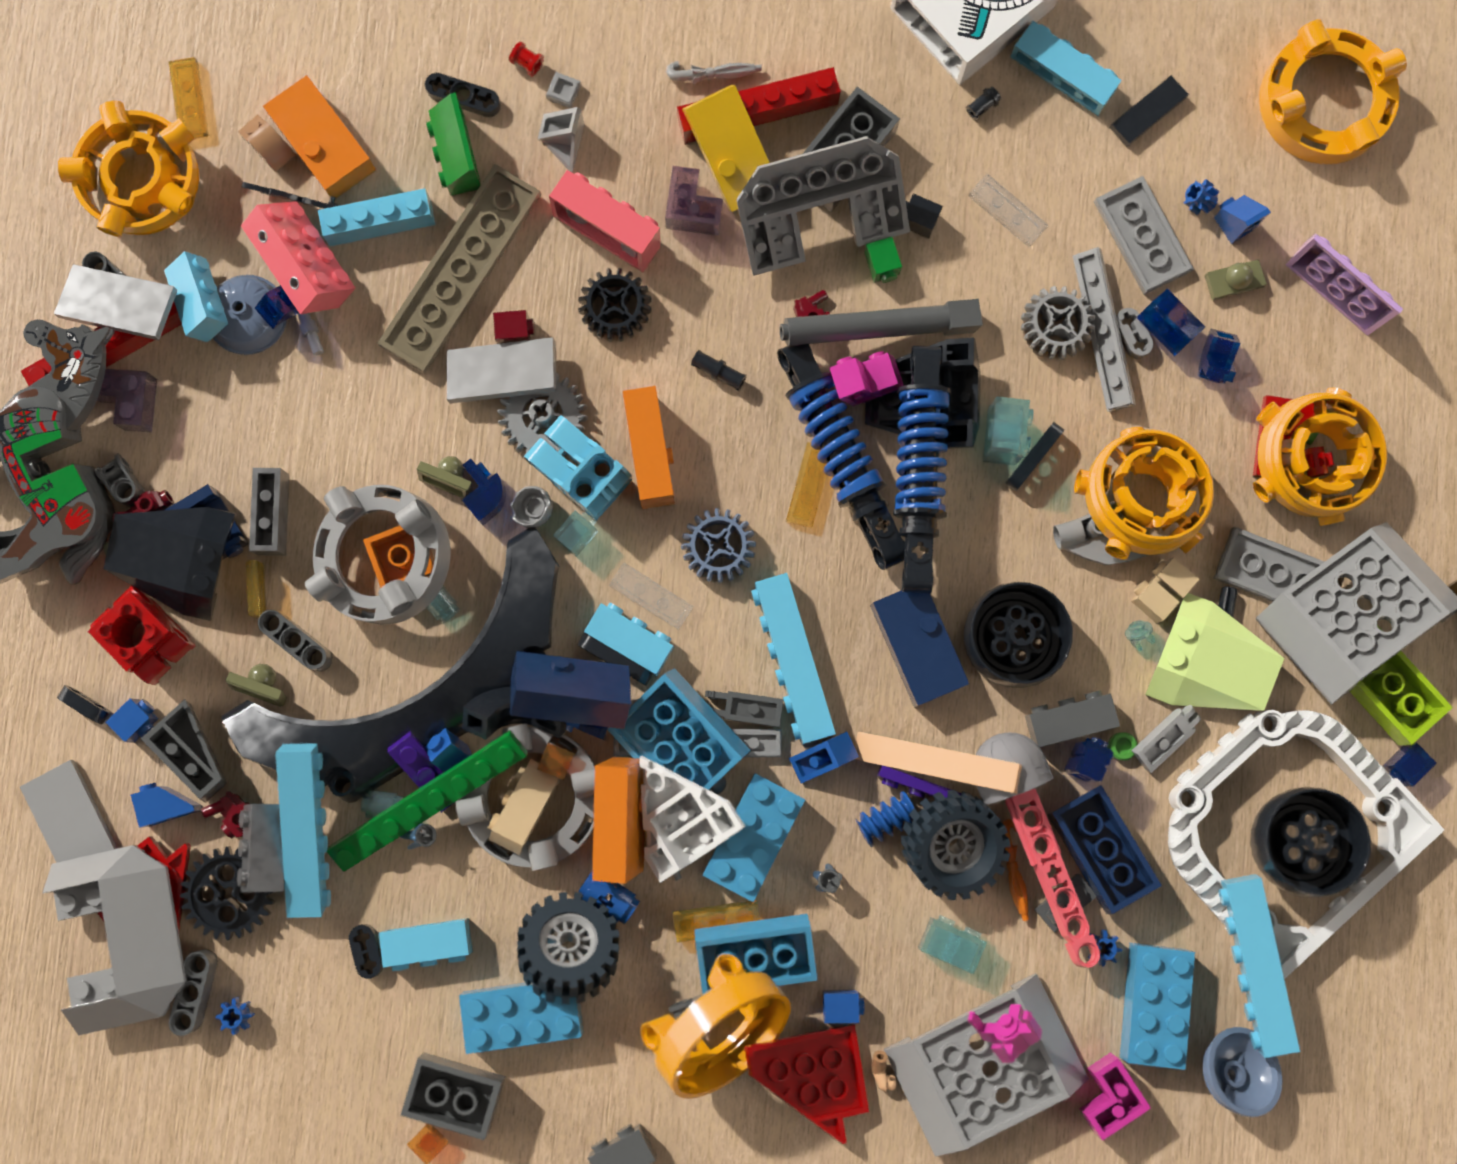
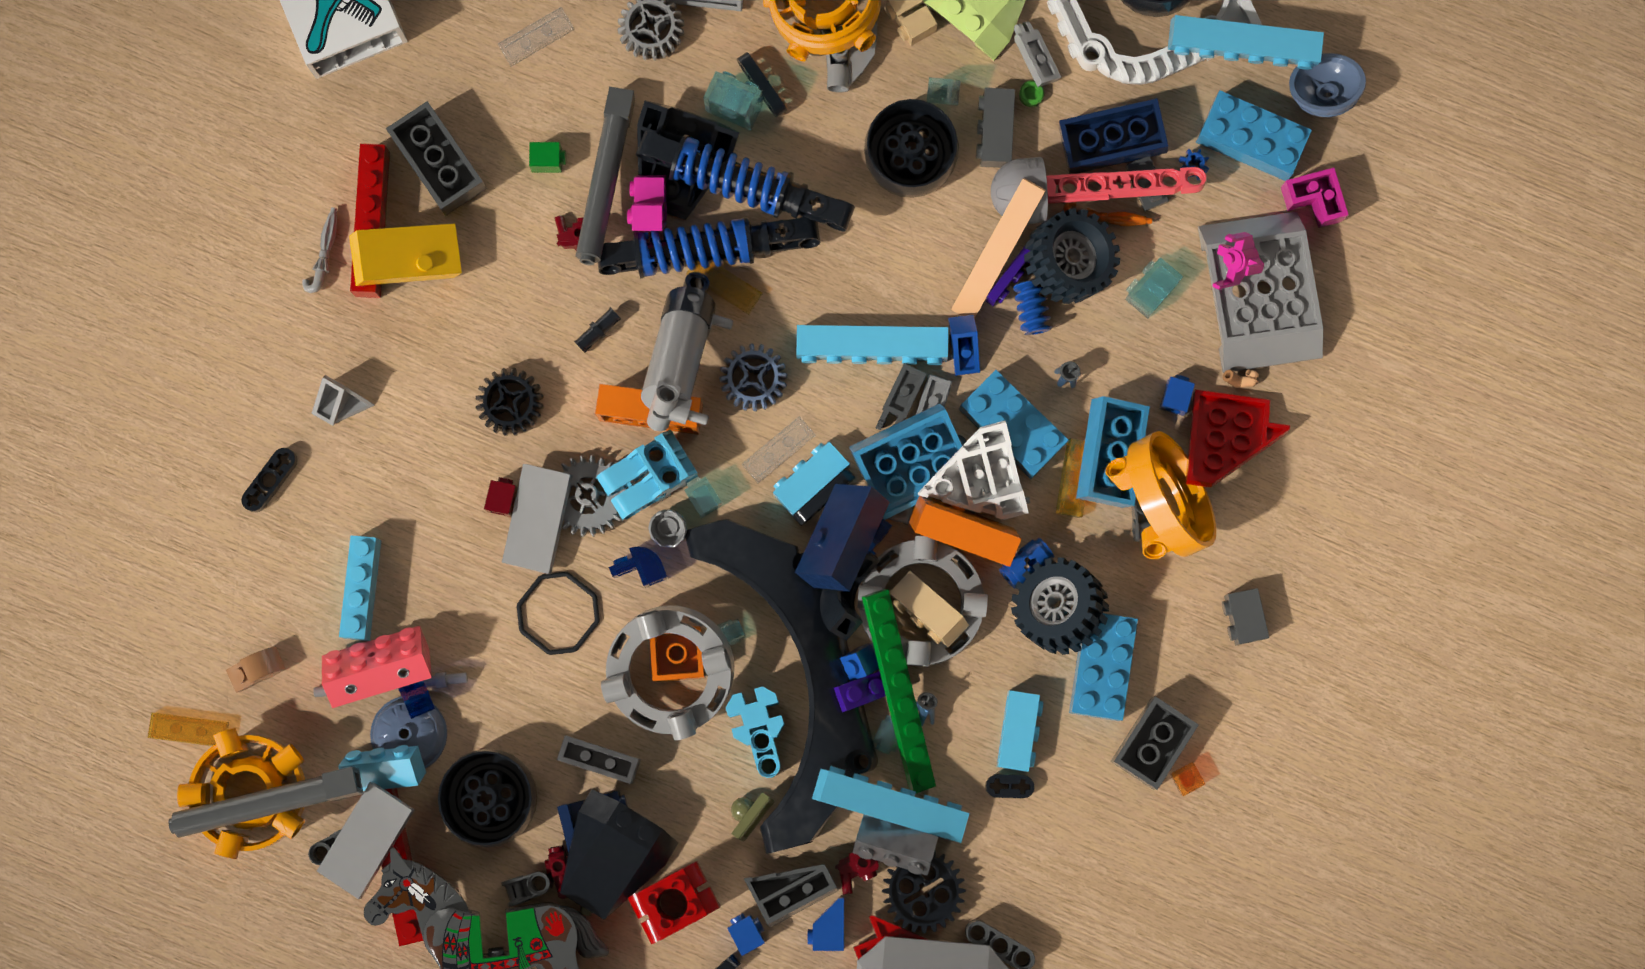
camera: 70 degrees left, 0 degrees up
(122, 191) = (263, 803): none -> dark grey brick
(133, 398) = (451, 853): brick -> none
(180, 387) = (464, 821): none -> black wheel
(239, 1009) = (1027, 907): blue gear -> none
(255, 588) = (663, 792): clear yellow tile -> none
(283, 634) = (708, 775): dark grey beam -> none
(288, 196) = (335, 628): black piece -> none
(319, 137) = (268, 619): orange brick -> none
(352, 662) = (757, 722): none -> medium azure connector
(378, 408) = (587, 633): none -> black piece
(446, 476) = (616, 595): olive tile -> none
(453, 147) = (318, 500): green slope -> none
(459, 268) = (430, 529): dark tan plate -> none
(526, 58) = (256, 412): red bush -> none
(556, 761) = (898, 570): clear orange plate -> none
(563, 90) = (295, 389): light grey tile -> none
(605, 220) = (432, 385): coral piece -> none
(686, 209) = (446, 311): brick -> none
(713, 455) = (678, 353): none -> light grey piece
(850, 170) = (468, 151): light grey slope -> none
(919, 645) = (894, 234): dark blue brick -> none
(922, 215) = (516, 112): black brick -> none
(984, 102) = (432, 25): black pin -> none
(1089, 760) = (1035, 123): clear blue brick -> none
(1091, 650) = (943, 91): none -> clear light blue brick
(1137, 631) = (939, 47): clear light blue plate -> none

